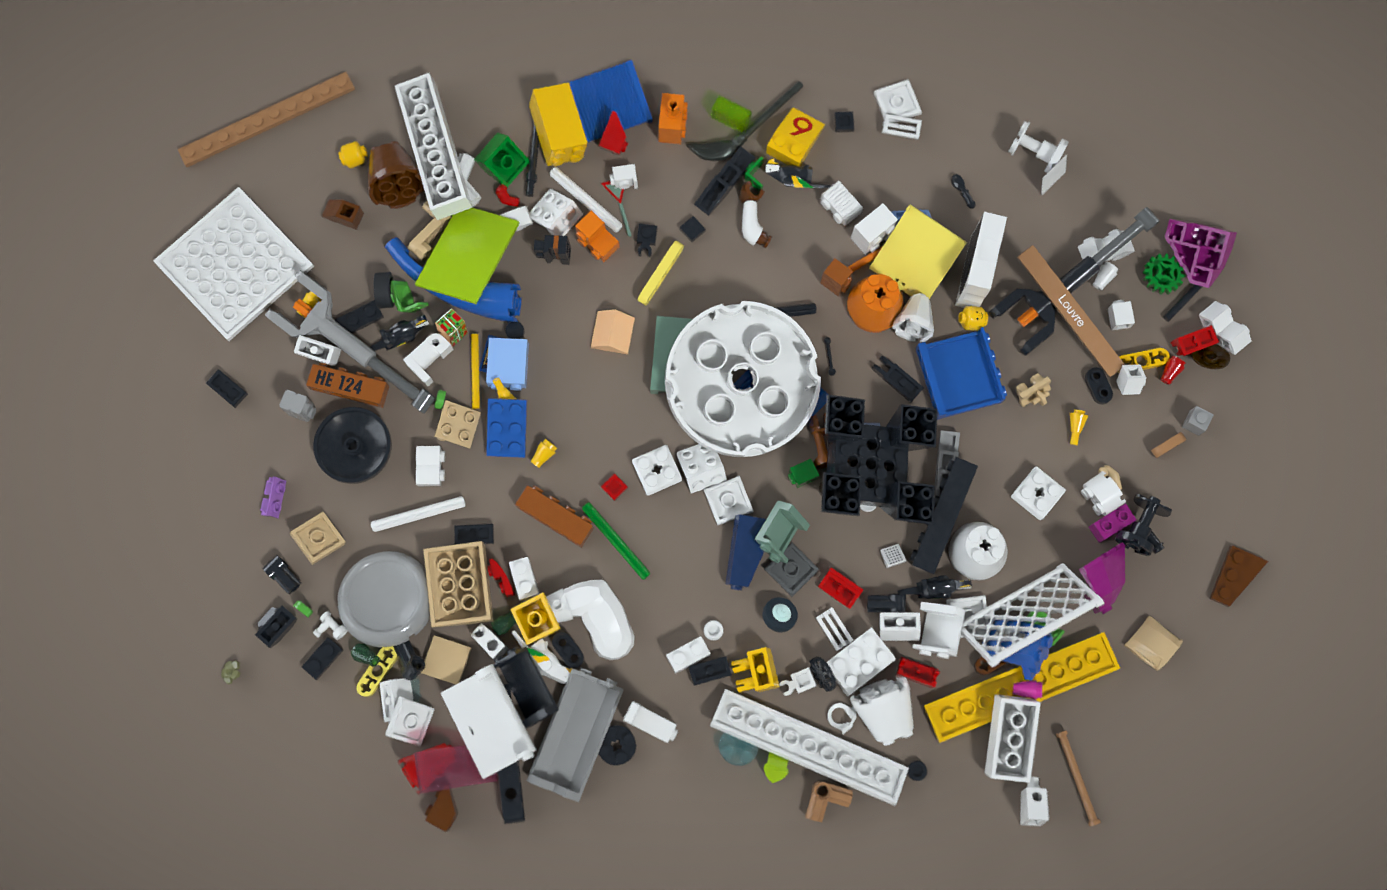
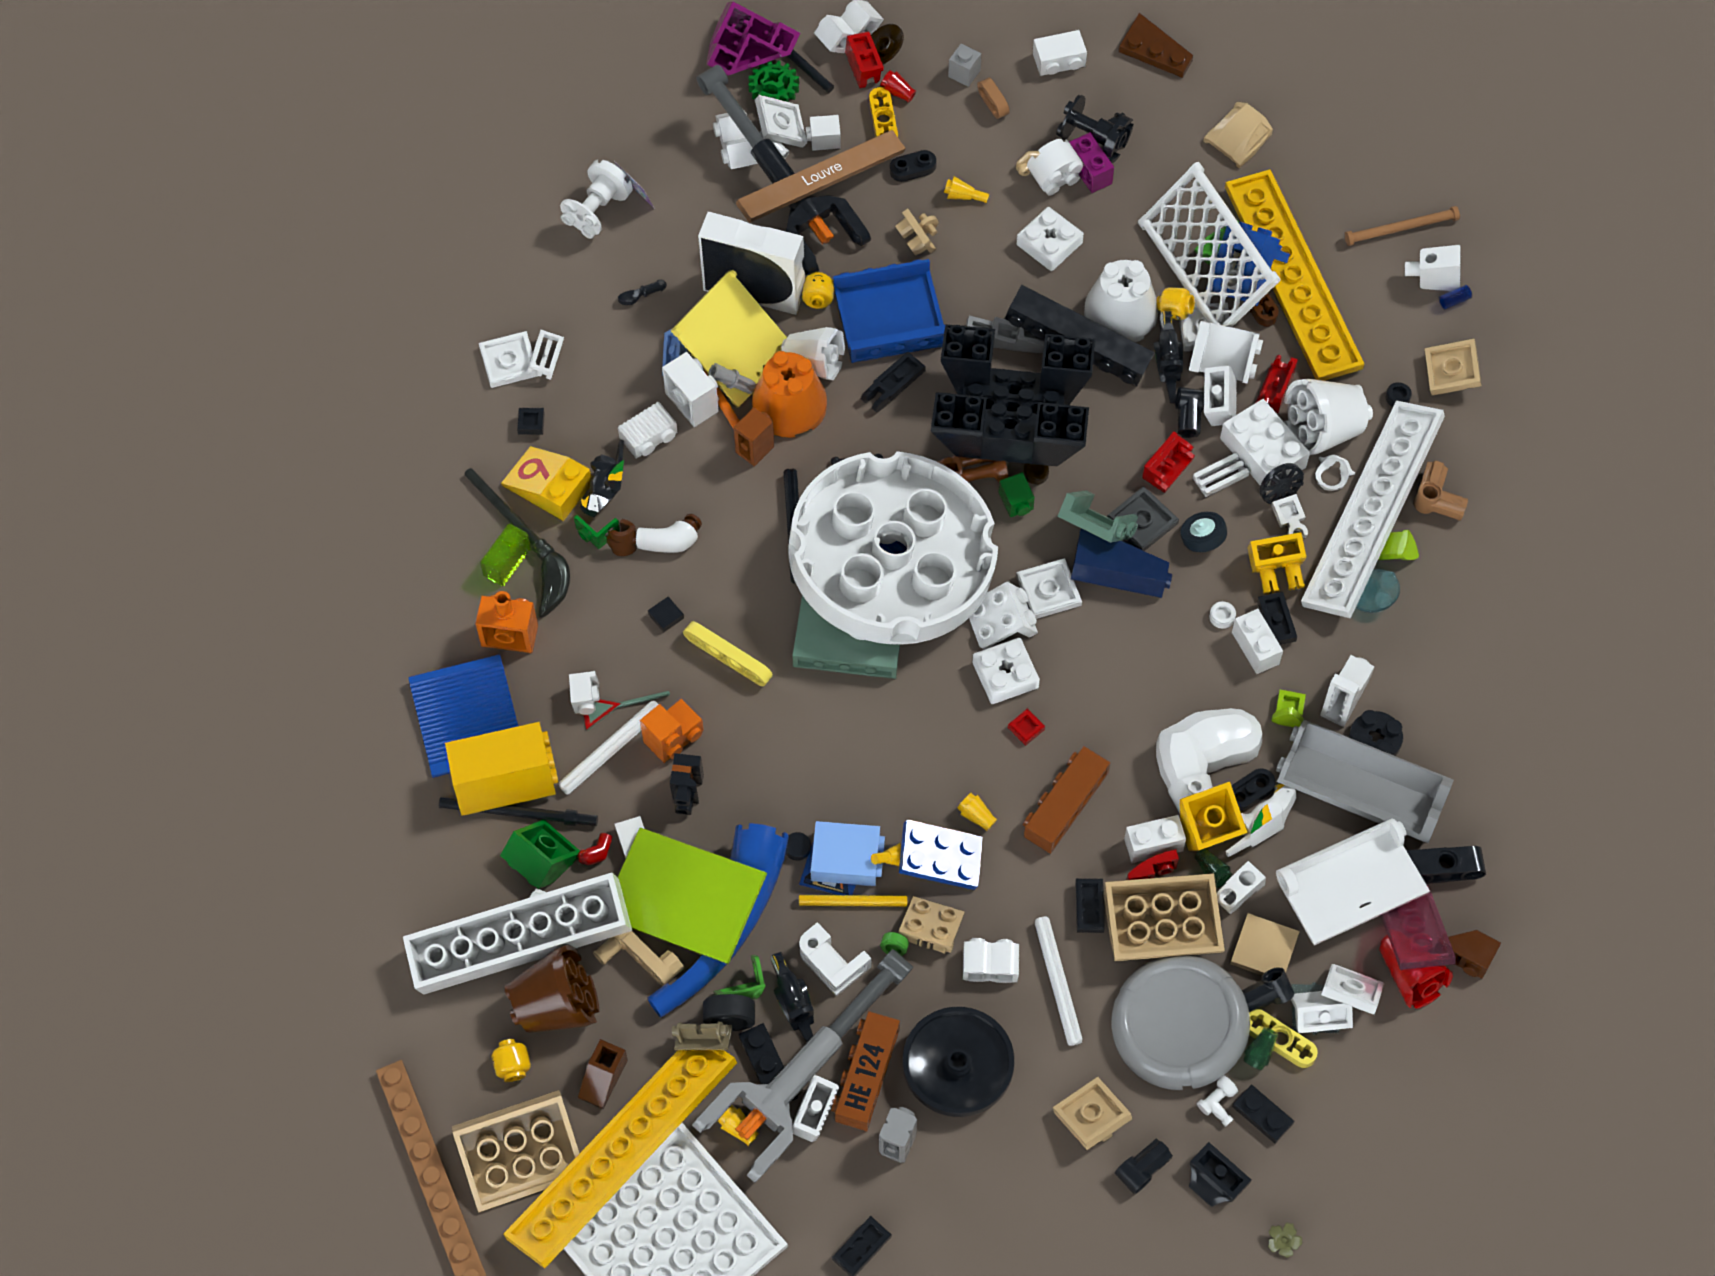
camera: 85 degrees left, 15 degrees down
(275, 489) = (1018, 1177): medium lavender hinge -> none
(289, 228) = (617, 1152): none -> yellow plate
(292, 164) = (516, 1150): none -> tan slope
(303, 608) = (1193, 1136): bright green tile -> none
(365, 273) = (701, 1036): none -> dark tan hinge
(451, 327) = (791, 919): piece -> none
(526, 685) = (1302, 834): black panel -> none
(556, 213) = (626, 786): white bracket -> none
(613, 331) = (806, 721): light nougat slope -> none
(614, 136) = (521, 700): red slope -> none
(616, 541) = (1101, 726): green axle -> none
(636, 680) = (1289, 709): none -> lime tile
(646, 236) = (672, 671): black plate -> none
(724, 181) = (600, 569): black slope -> none
(884, 256) = (731, 378): none -> light grey axle
(892, 555) = (1127, 402): white slope -> none
(942, 814) = (1453, 367): none -> tan hinge
(982, 591) = (1177, 301): none -> yellow head
(1012, 738) = (1359, 281): white brick -> none
(1012, 820) = (1455, 297): none -> clear blue piece
(1028, 689) = (1298, 261): dark pink cone -> none
(1106, 576) = (1153, 167): magenta brick -> none
(1126, 280) = (780, 121): none -> white tile
(1131, 379) = (910, 126): white brick -> none
(1218, 496) = (1059, 53): none -> white brick

